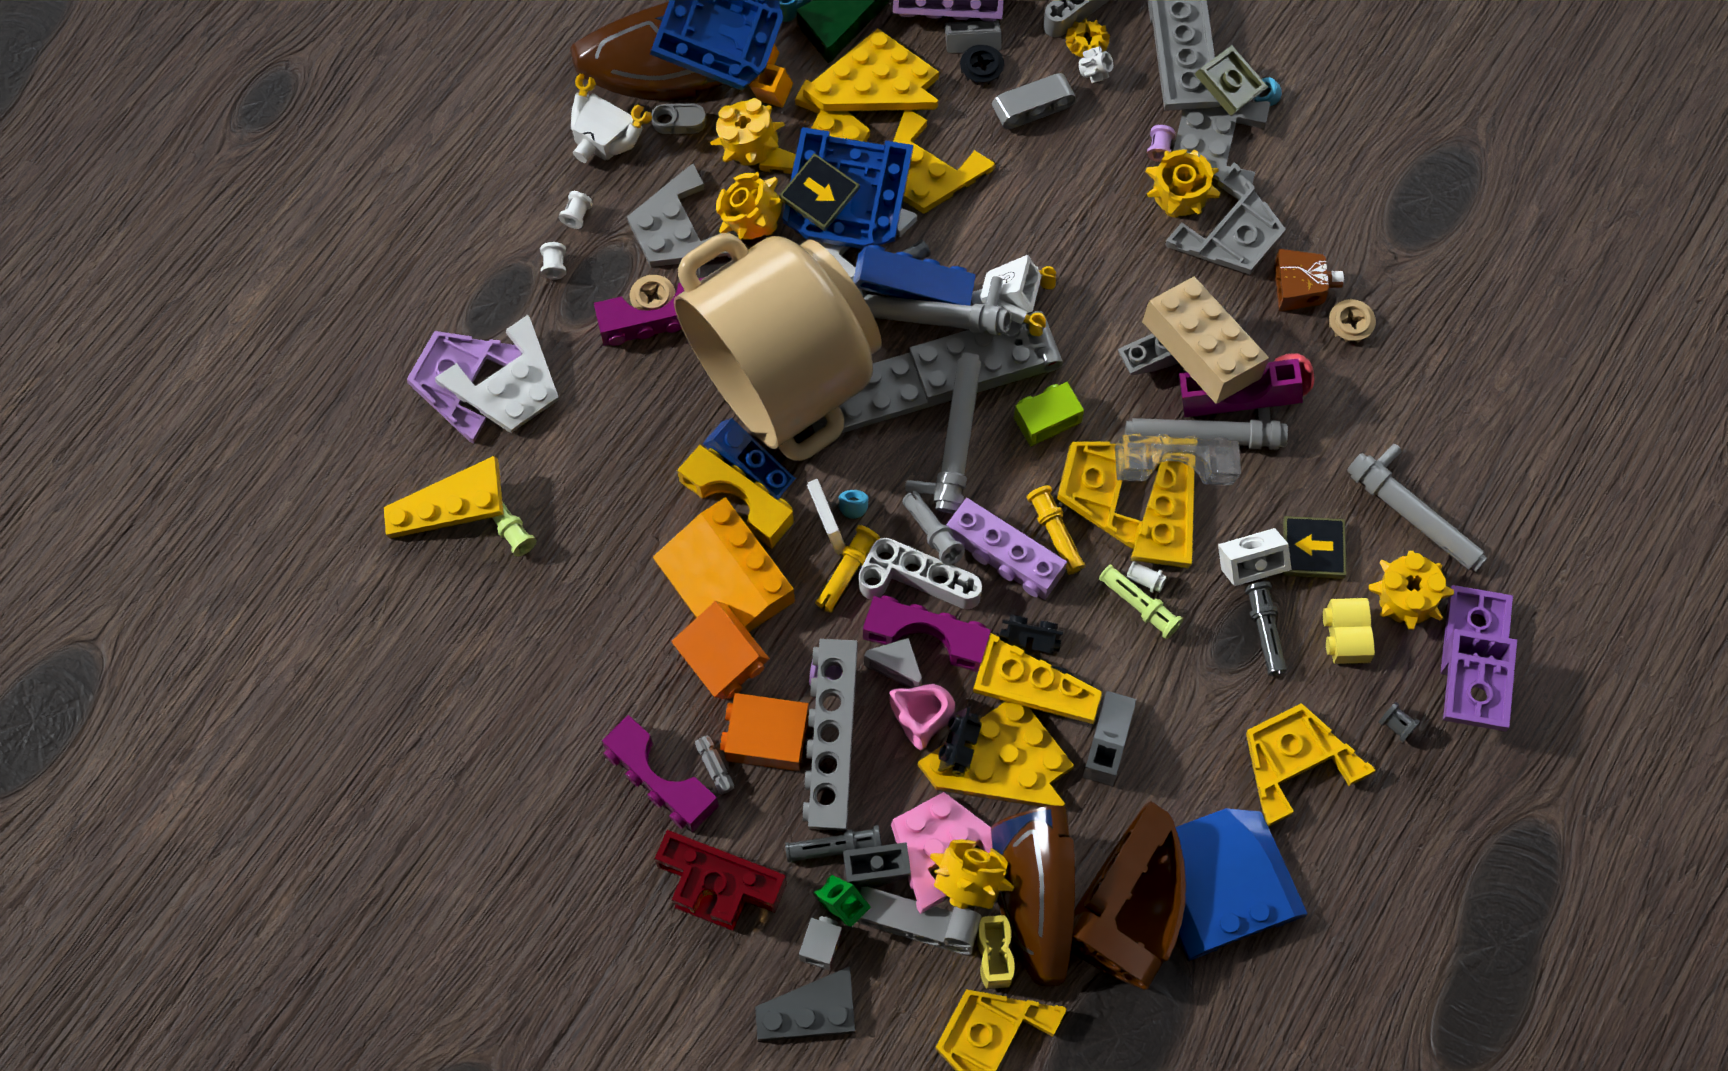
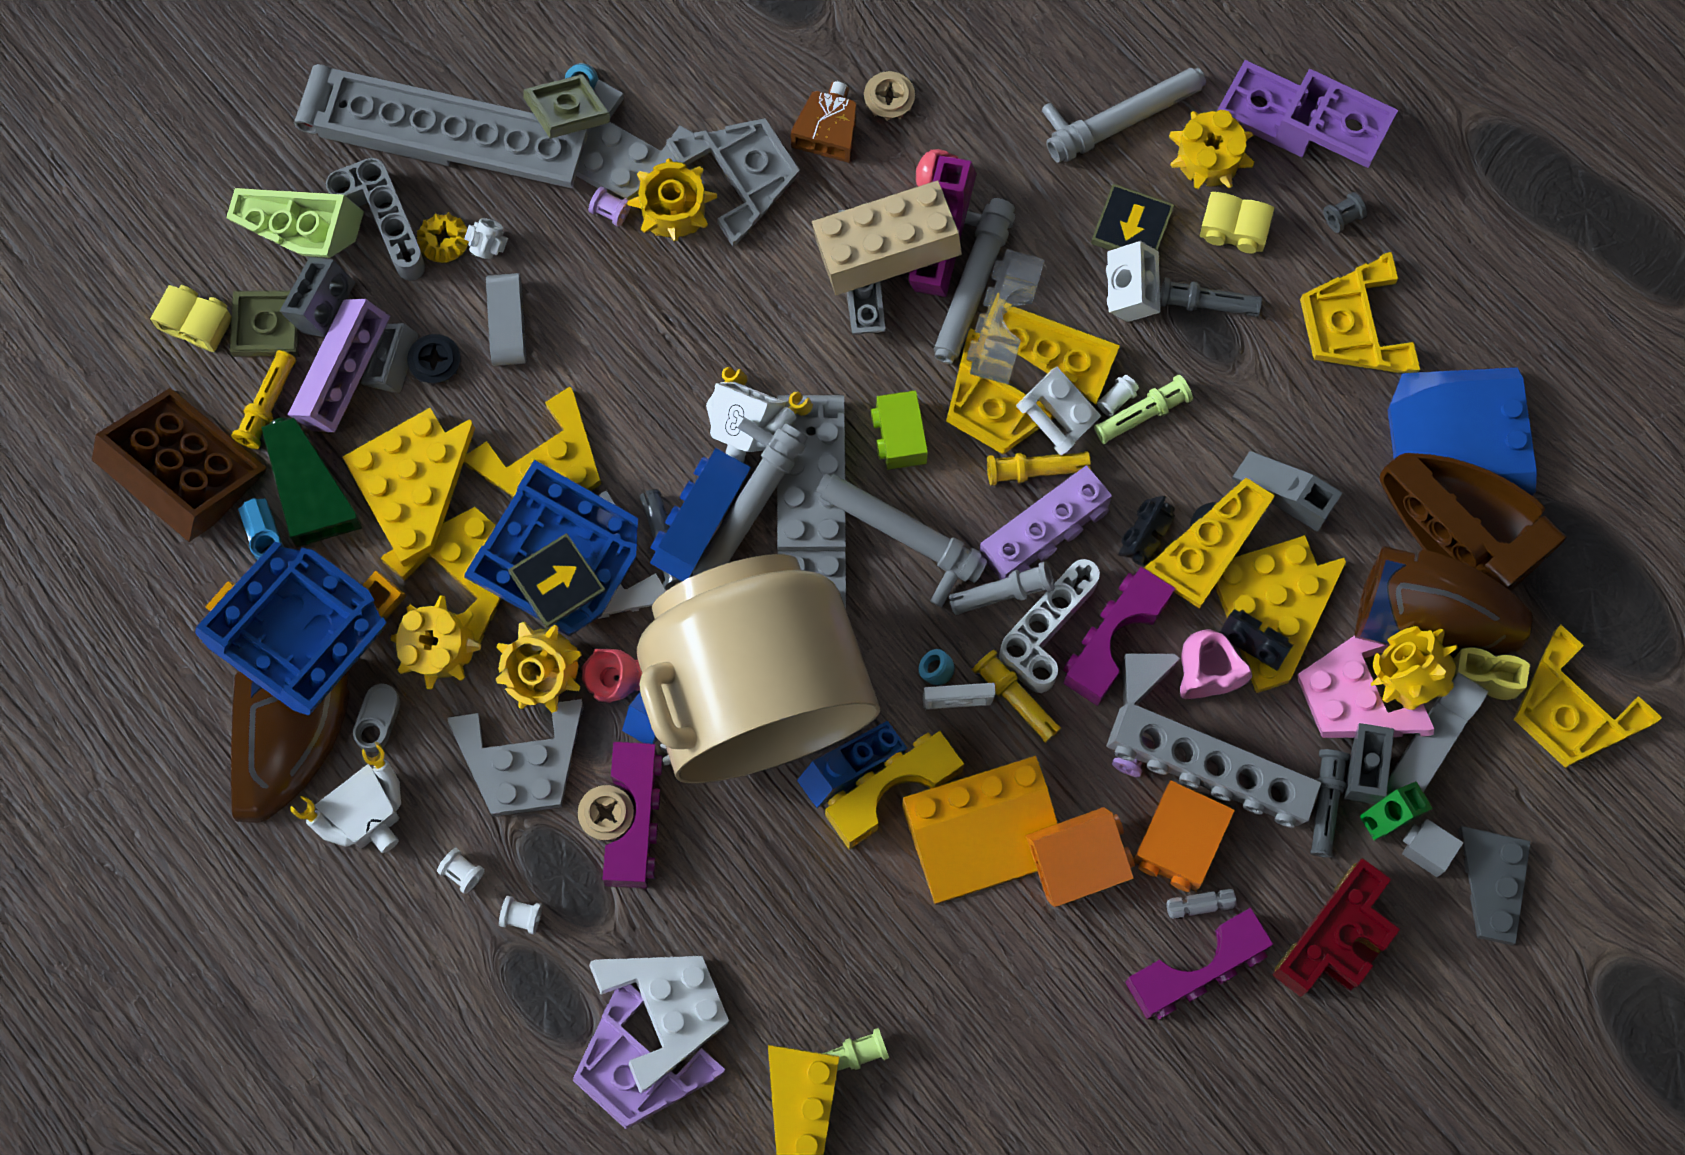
camera: 75 degrees left, 5 degrees up
(1118, 533) = (1065, 404): none -> white plate

